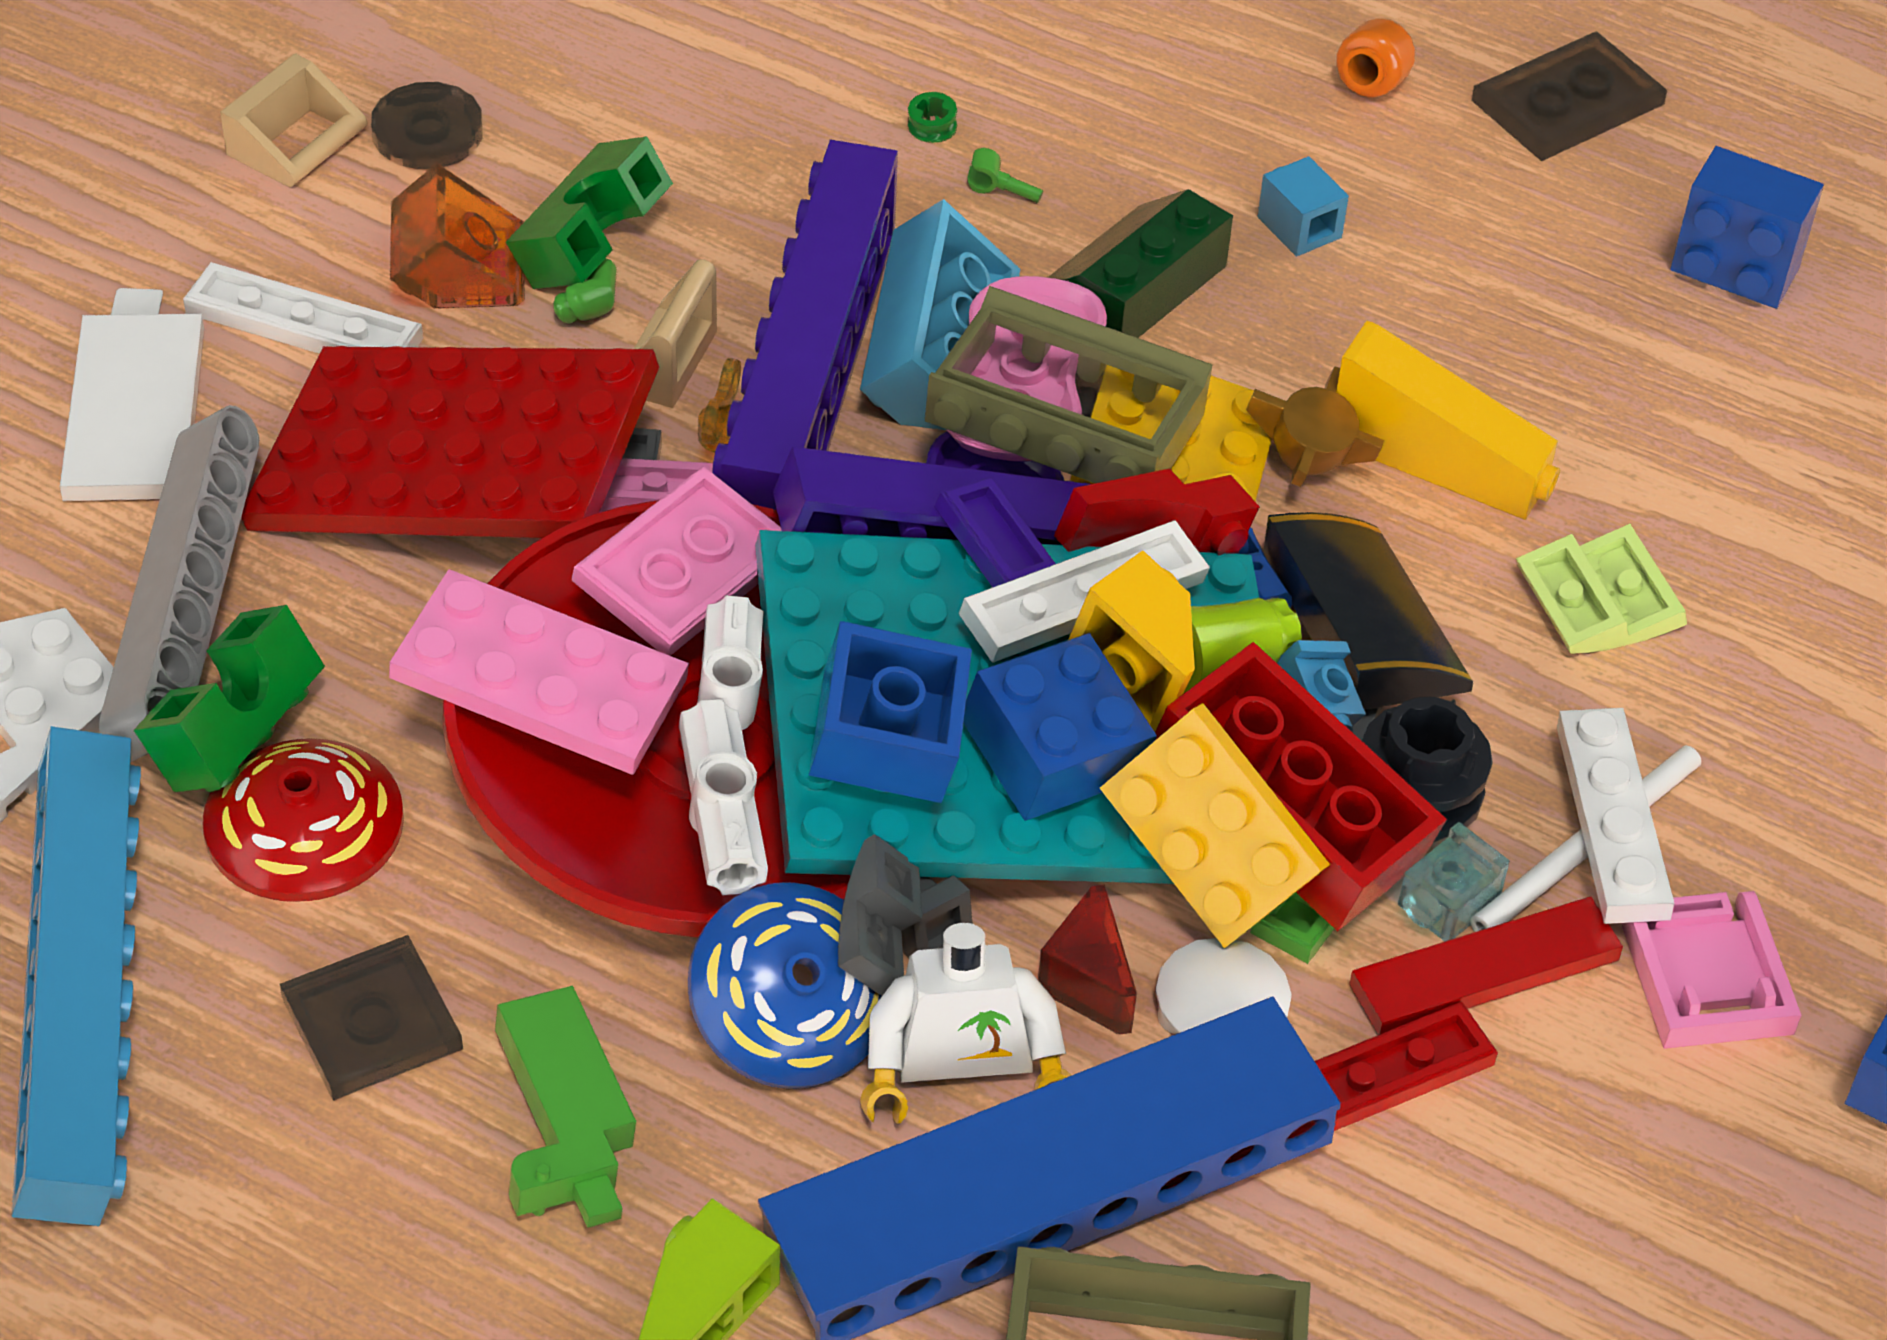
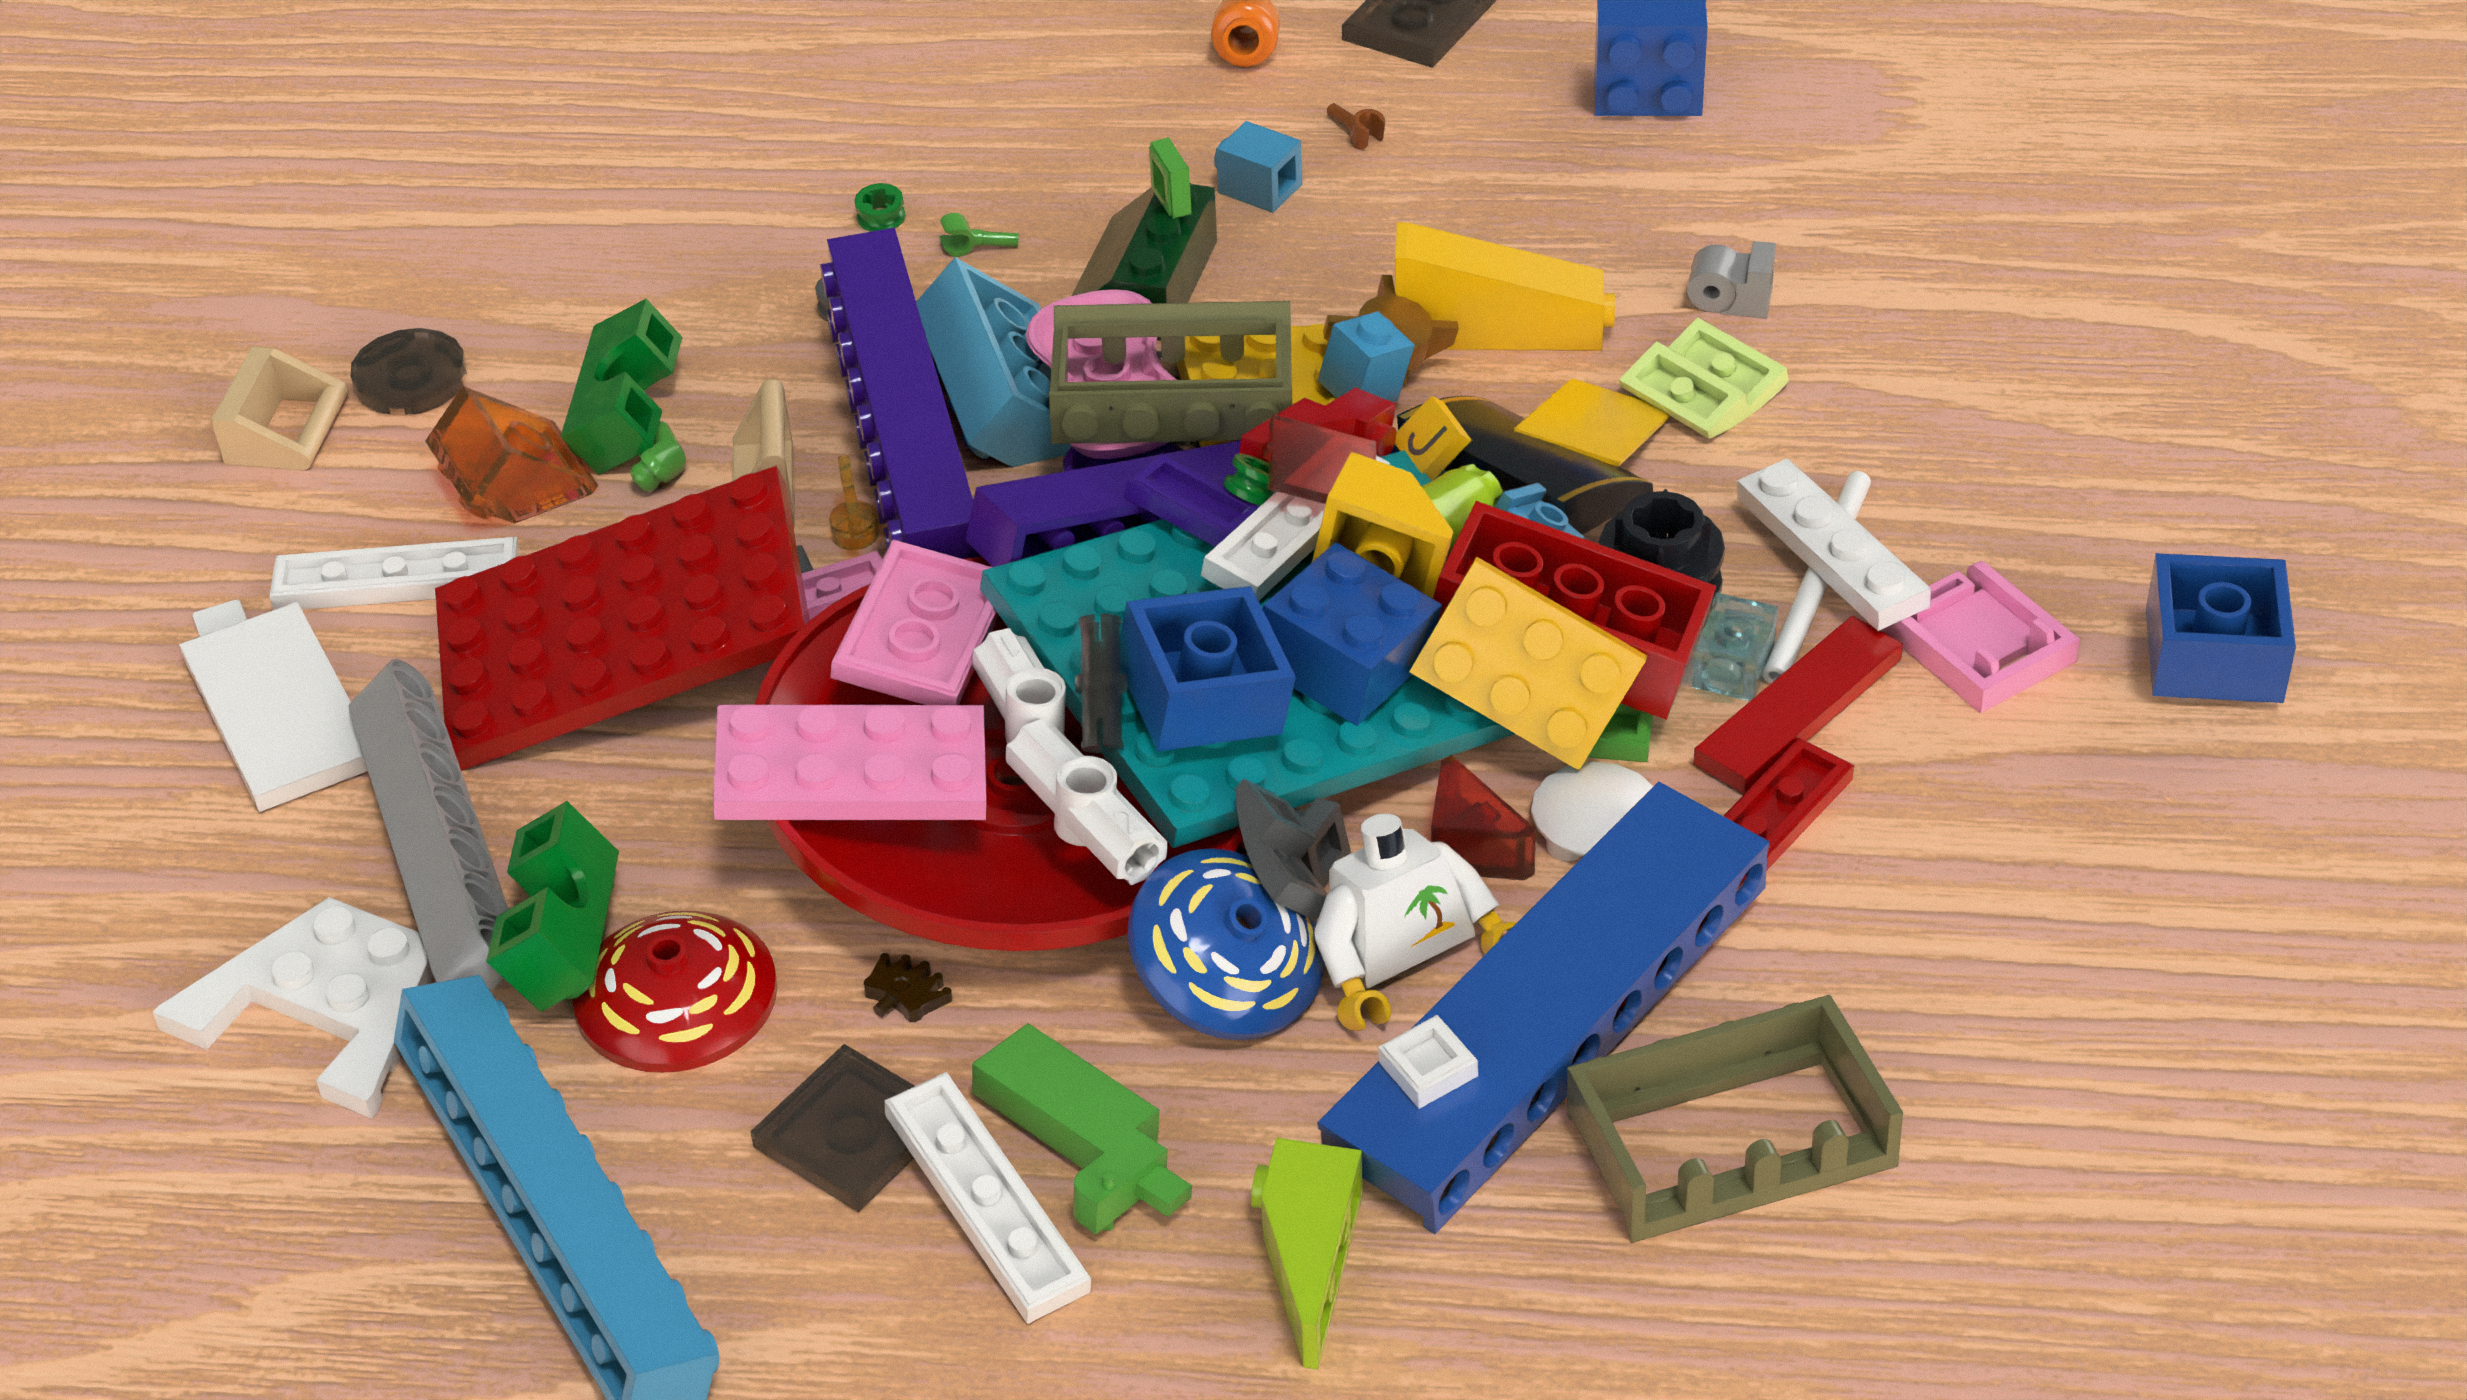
camera: 20 degrees left, 5 degrees down
(441, 1139) = (987, 1198): none -> white tile
(499, 901) = (906, 988): none -> dark brown piece
(790, 688) = (1101, 683): none -> clear smoke pin
(887, 1185) = (1428, 1061): none -> white tile
(1063, 535) = (1249, 480): none -> green bush
(1124, 526) = (1309, 457): none -> clear red piece
(1182, 193) = (1170, 178): none -> bright green tile
(1266, 449) = (1366, 355): none -> dark azure brick
(1280, 553) = (1432, 437): none -> yellow tile
(1430, 195) = (1362, 124): none -> dark orange hand
(1461, 593) = (1594, 421): none -> yellow window
(1691, 498) = (1733, 281): none -> light grey leg

